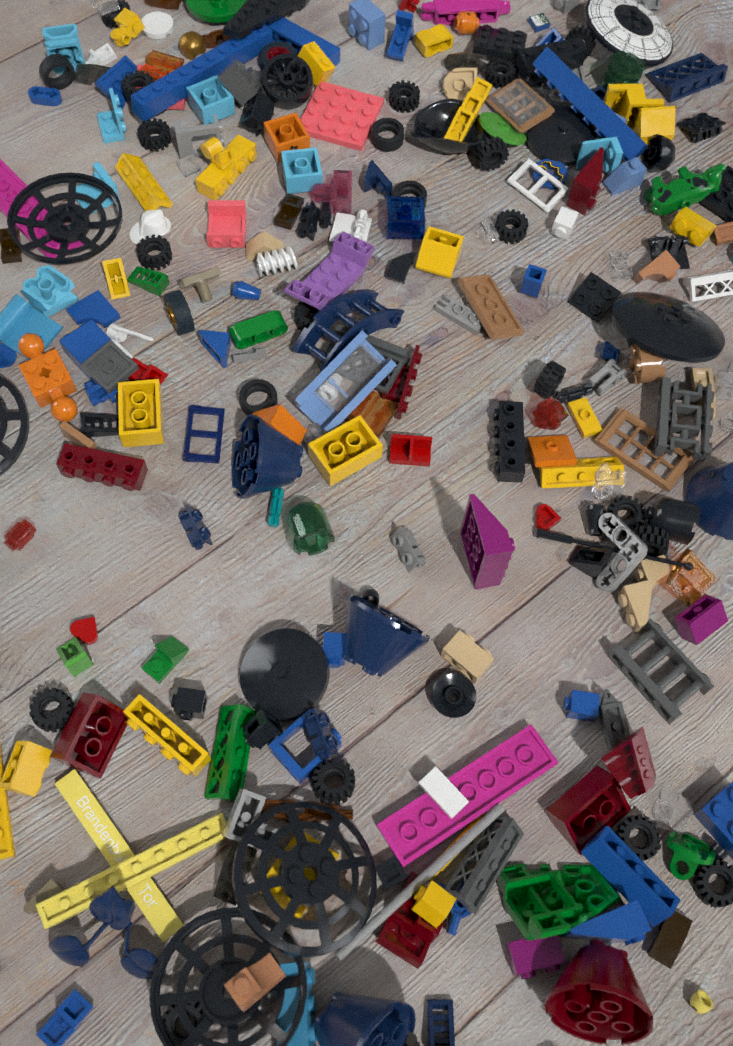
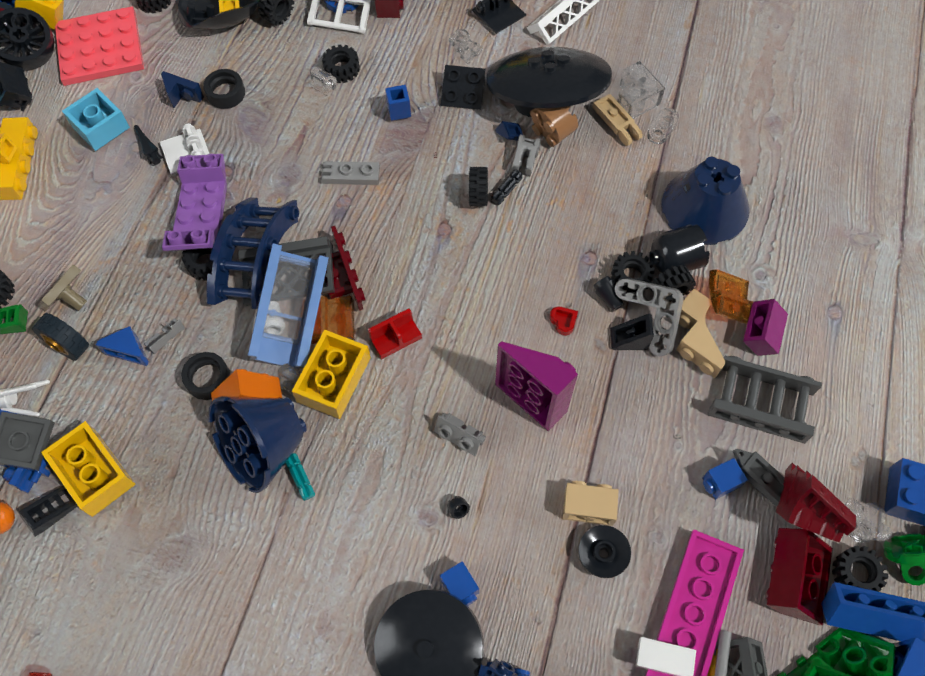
camera: 30 degrees left, 0 degrees up
(76, 436) = (35, 540): medium nougat tile -> none
(102, 467) = (81, 555): dark red brick -> none
(147, 372) = (66, 421): red slope -> none
(197, 409) = (156, 455): clear blue window -> none
(200, 534) = (239, 555): dark blue hinge -> none
(226, 224) = (50, 215): coral panel -> none
(246, 291) = (118, 273): blue cone -> none
(258, 329) = (157, 304): green beam -> none
(262, 243) = (108, 217): tan slope -> none
(275, 261) = (129, 224): white piece -> none
(285, 134) = (54, 92): orange brick -> none
(289, 211) = (109, 167): dark brown slope -> none
(309, 221) = (137, 166): black hinge -> none
(309, 528) = (350, 476): clear green cylinder -> none
(337, 192) = (147, 120): clear pink brick -> none
(378, 637) = (498, 543): dark blue cone -> none
(385, 144) = (155, 29): black tyre -> none
(400, 267) = (261, 161): black slope -> none
(405, 217) = (234, 109): clear blue slope -> none
(439, 252) = (290, 124): yellow slope -> none
(490, 307) = (374, 149): medium nougat tile -> none
(510, 441) = (482, 267): black brick -> none
(549, 414) = (500, 219): clear red brick -> none
(551, 451) = (526, 253): orange plate -> none
(564, 223) = (388, 33): white brick -> none
(569, 539) = (600, 327): black piece -> none
(576, 475) = (564, 257): yellow fence -> none
(584, 417) = (531, 204): yellow plate -> none
(610, 481) = (598, 252): clear plate -> none
(634, 445) = (604, 201): medium nougat piece -> none
(660, 269) = (503, 29): nougat arch -> none
(668, 417) = (608, 163): dark grey fence -> none

